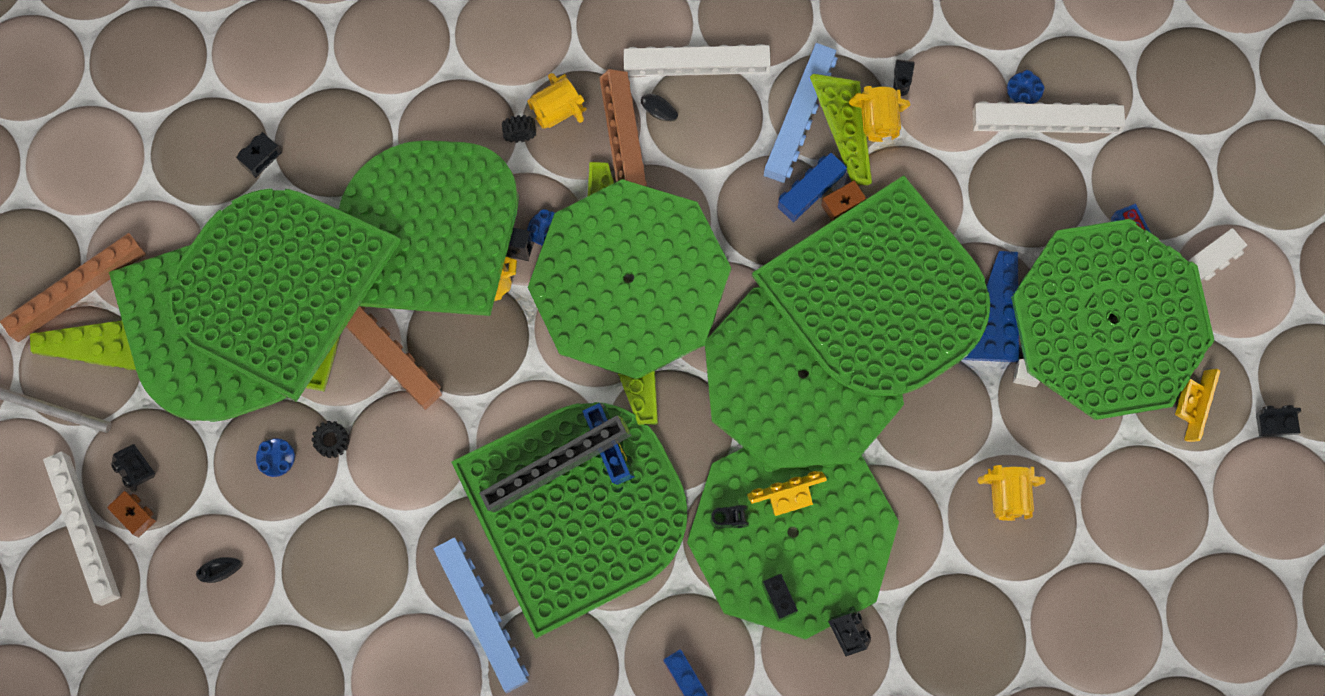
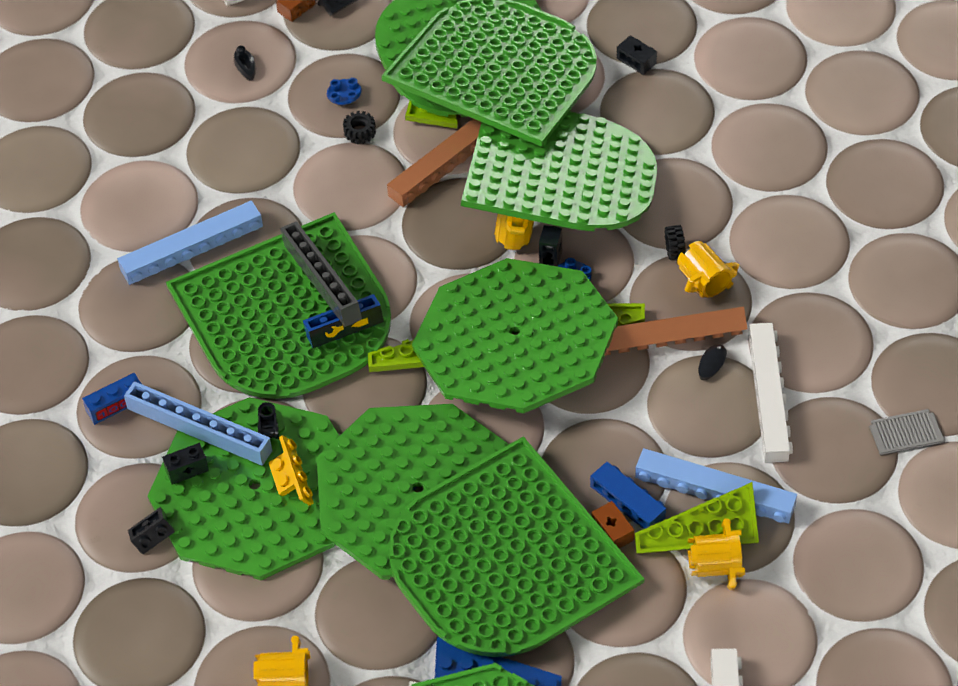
camera: 90 degrees right, 20 degrees down
(732, 587) = (198, 423): none -> light blue brick
(903, 75) = (769, 583): black piece -> none

